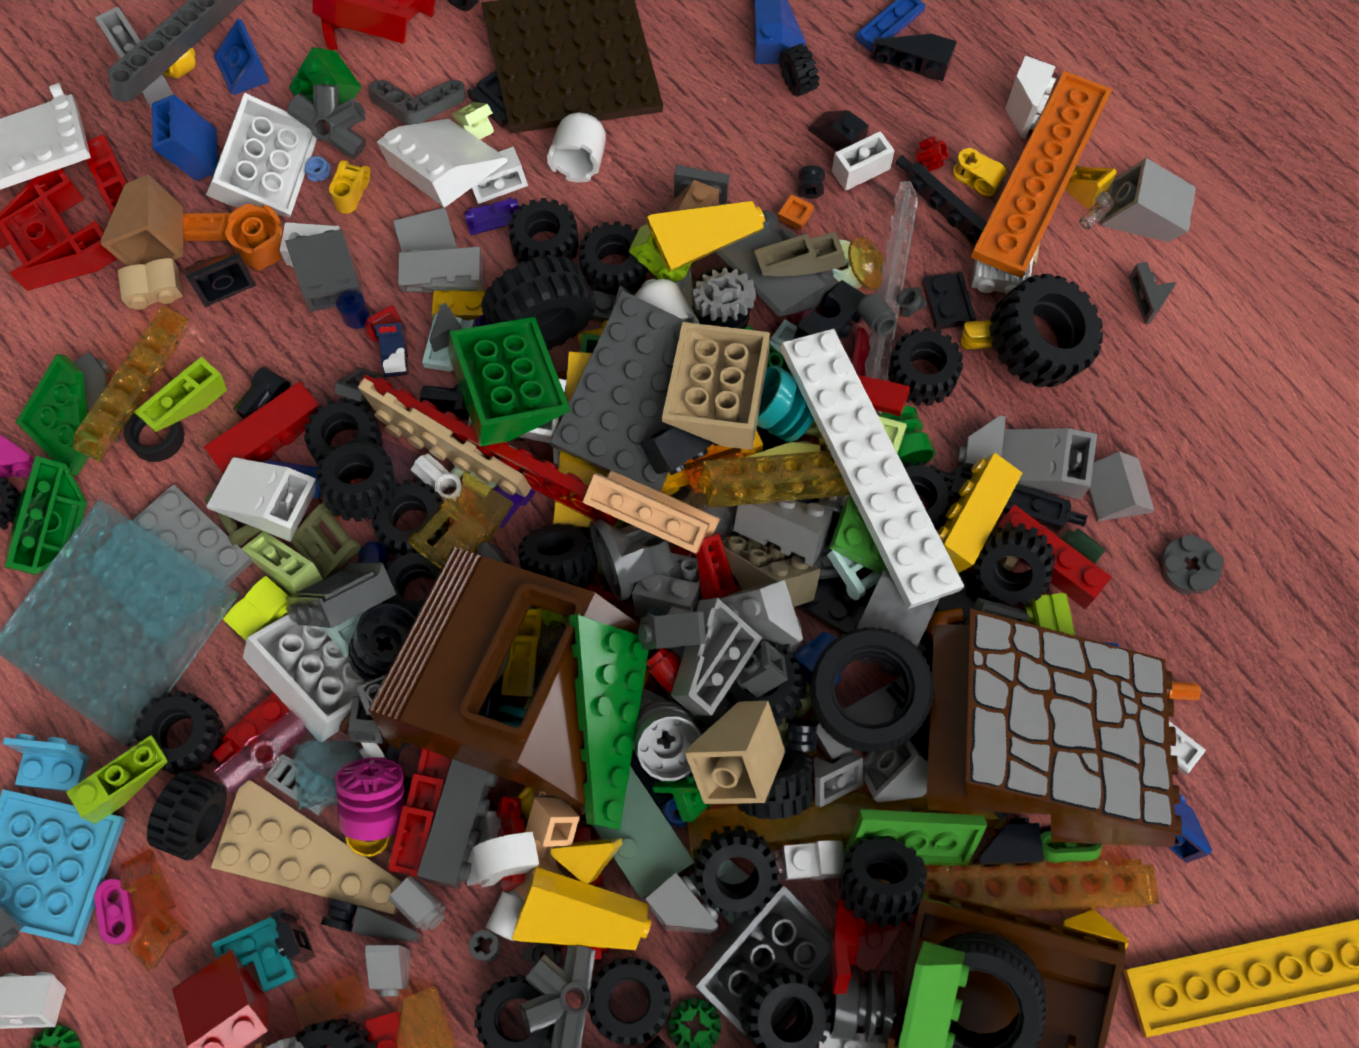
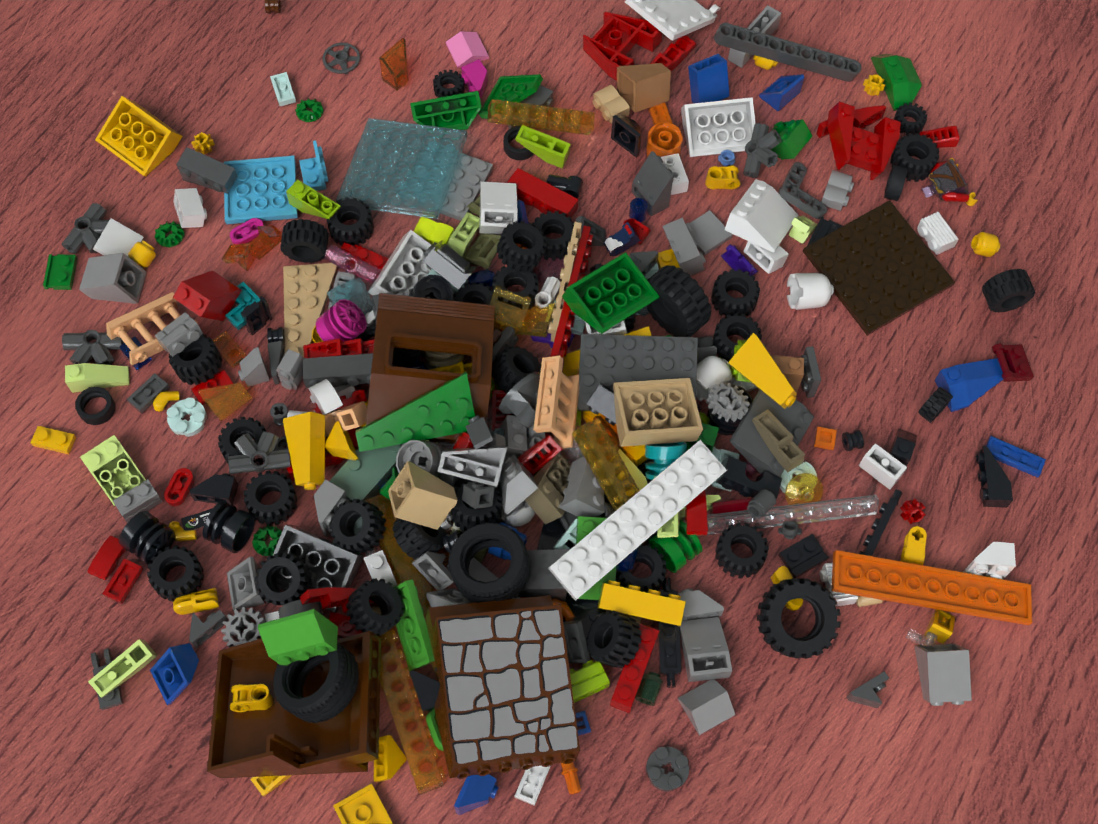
camera: 70 degrees right, 5 degrees down
(434, 57) = (837, 189): none -> light grey brick

